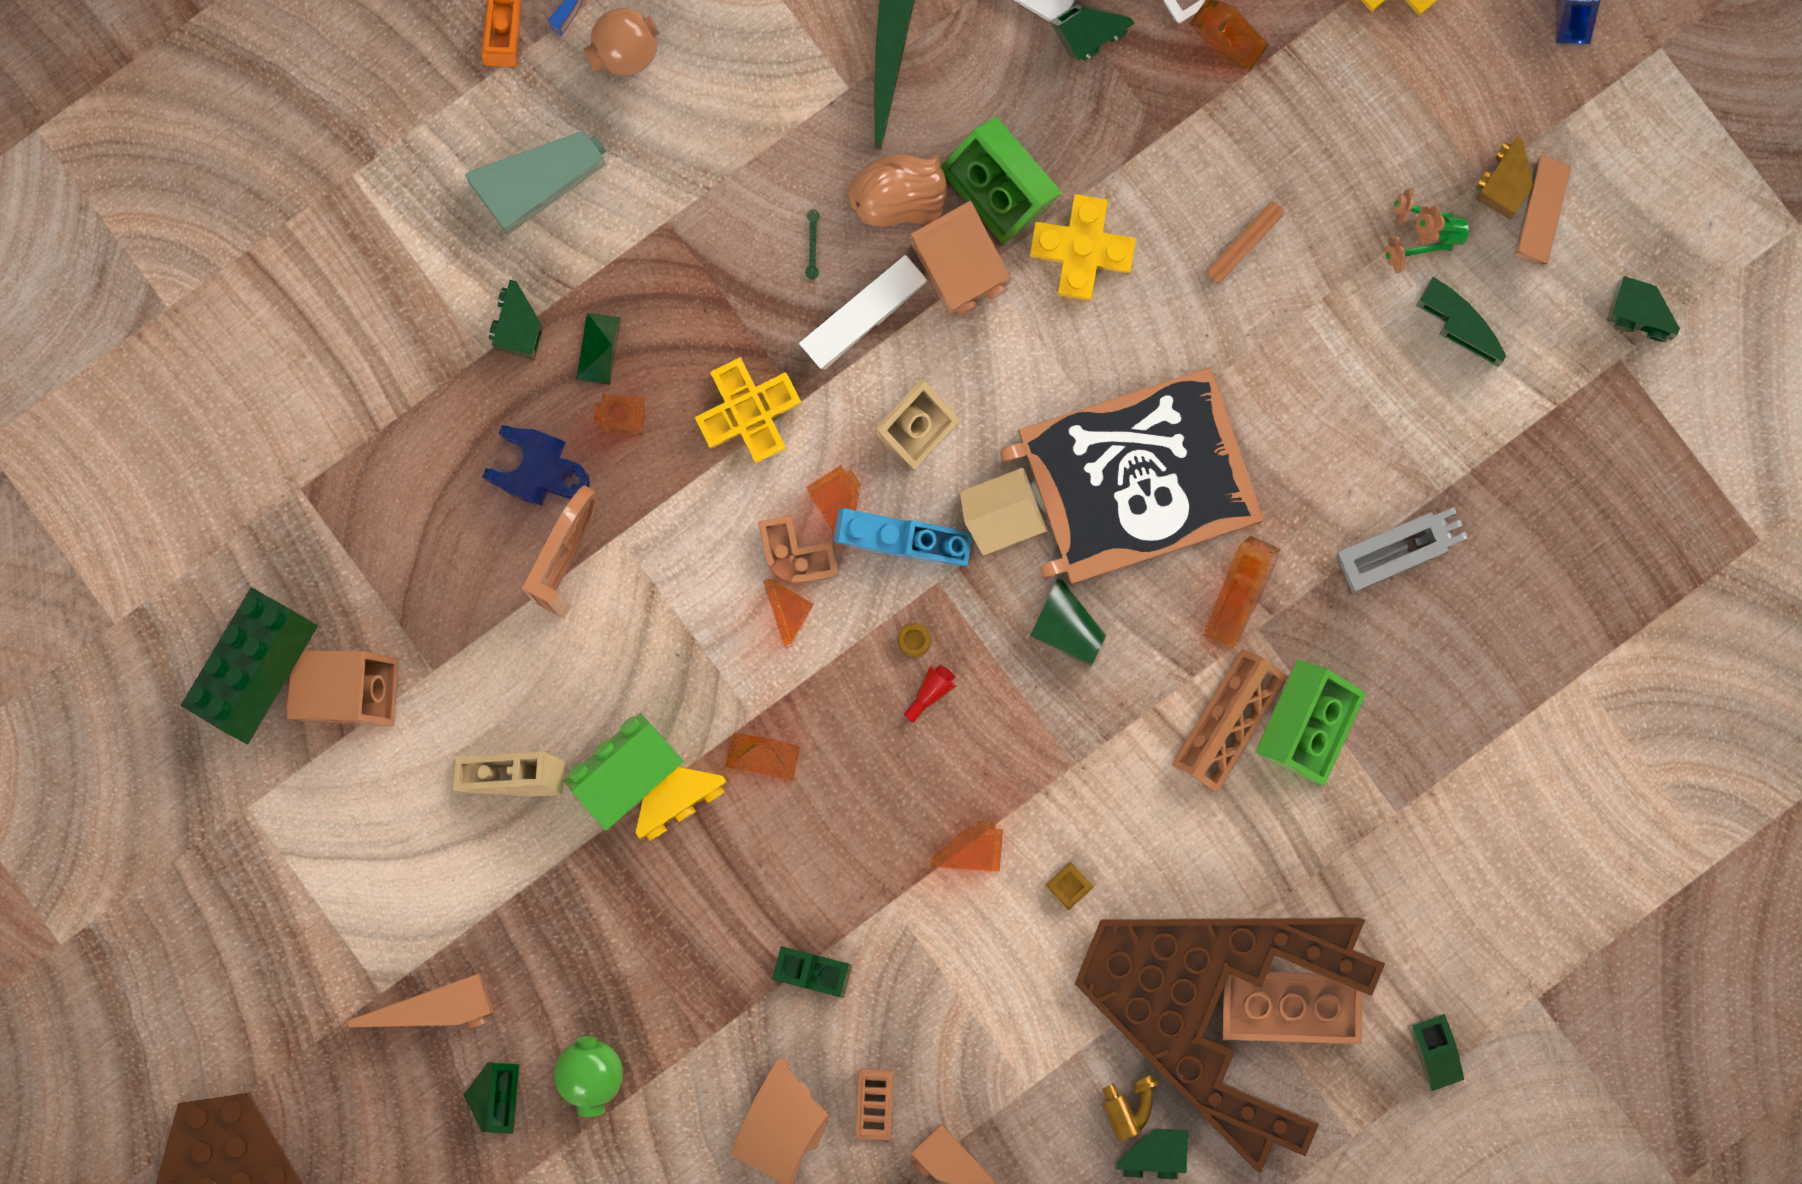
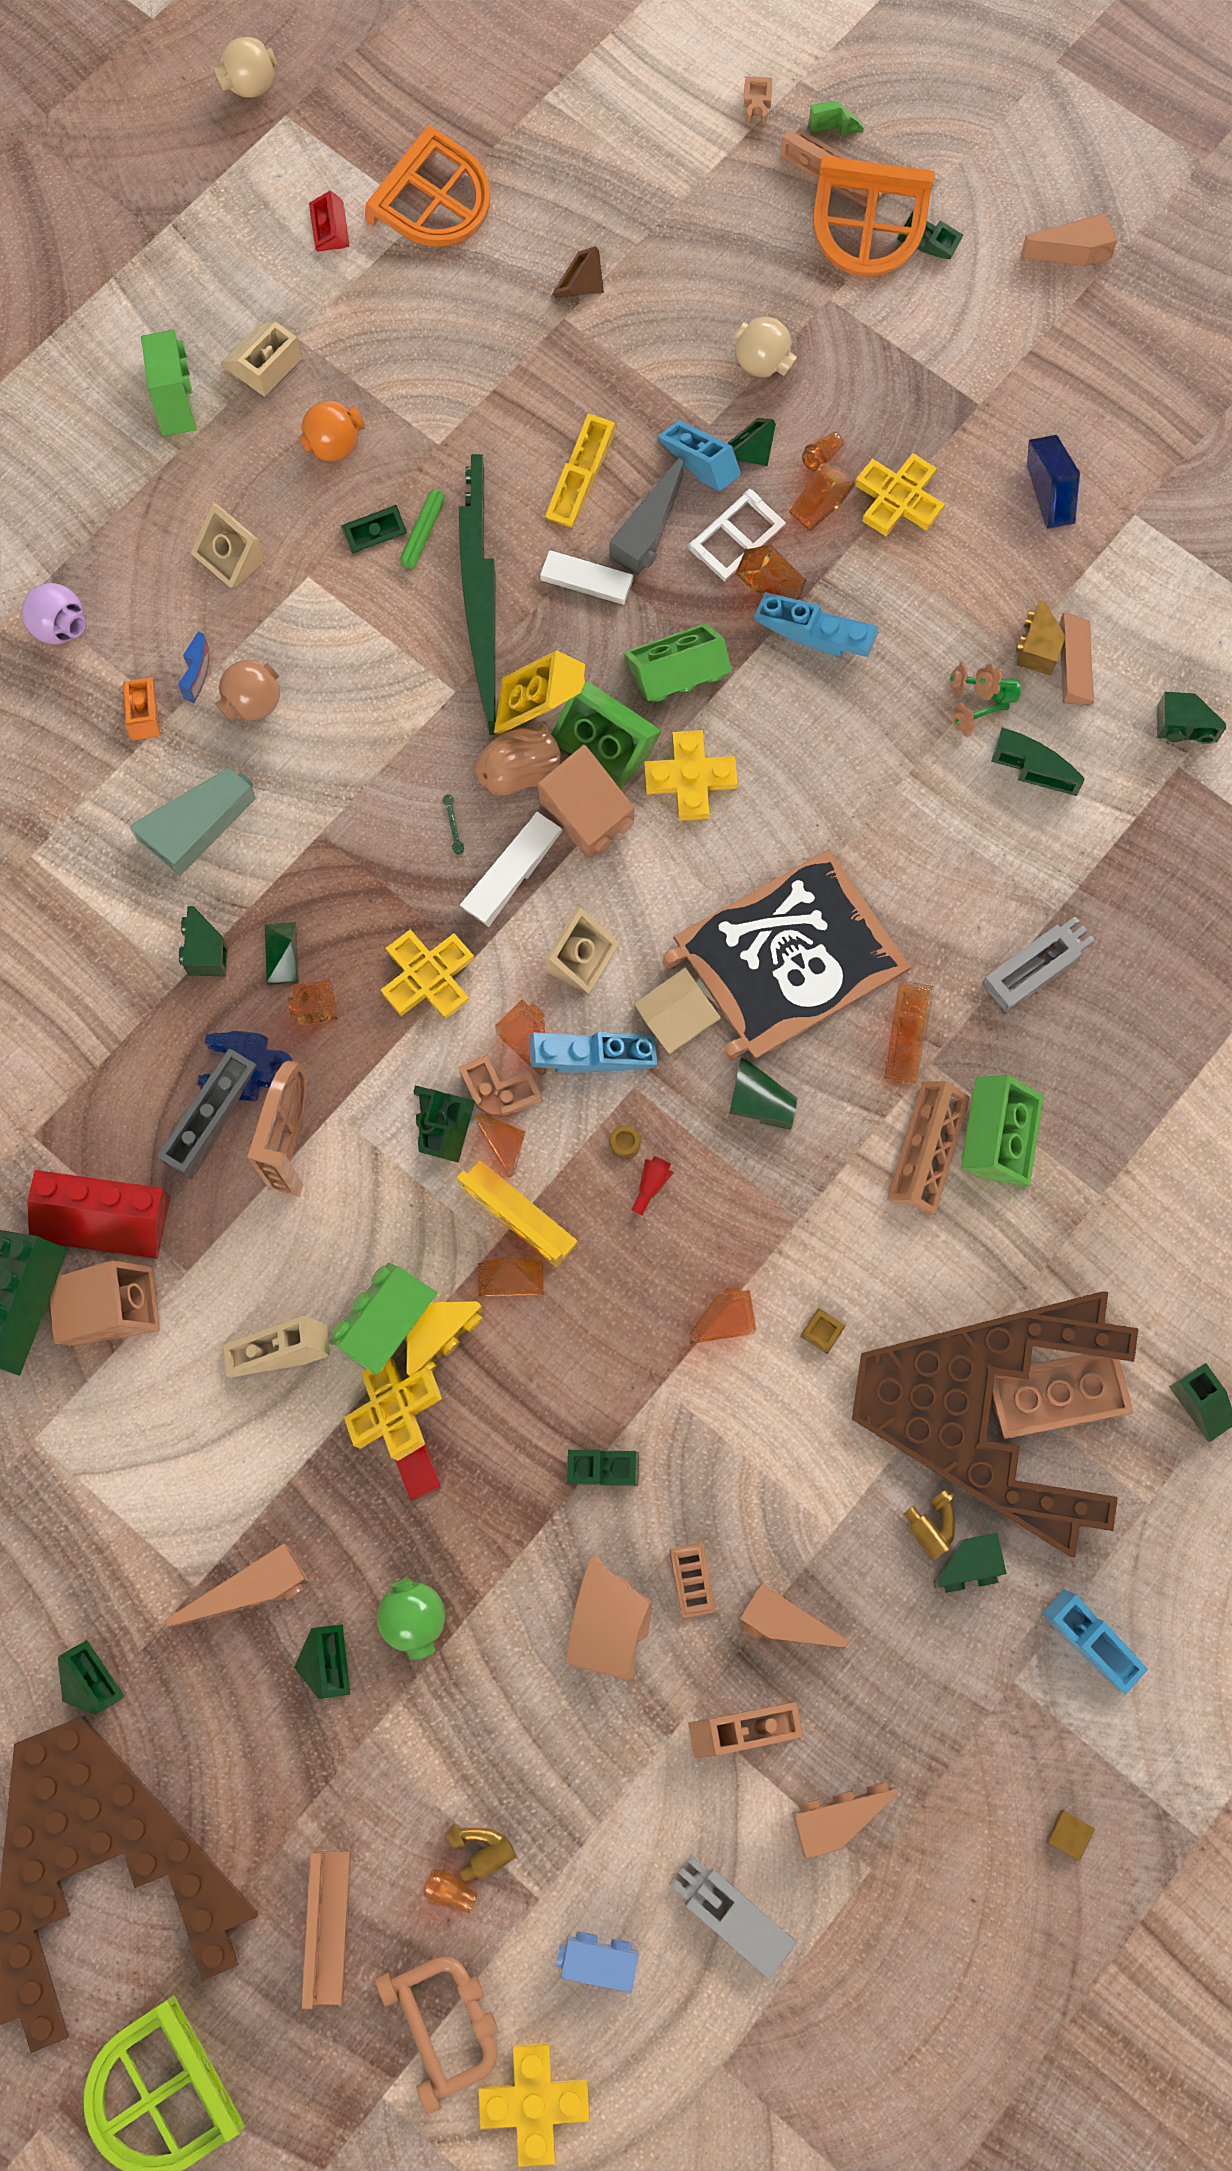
camera: 15 degrees left, 10 degrees down
(258, 1060) = (86, 1680): none -> dark green slope
(352, 592) = (97, 1213): none -> red slope
(487, 514) = (207, 1115): none -> dark grey slope
(614, 866) = (393, 1409): none -> yellow plate
(623, 922) = (418, 1473): none -> red slope
(728, 576) = (442, 1123): none -> dark green slope
(785, 690) = (517, 1213): none -> yellow fence
(935, 125) = (538, 689): none -> yellow slope
(1086, 28) = (649, 594): dark green slope -> none
(1100, 113) = (678, 662): none -> bright green slope
(1245, 242) = (830, 740): nougat axle -> none
(1262, 106) = (811, 627): none -> dark azure slope

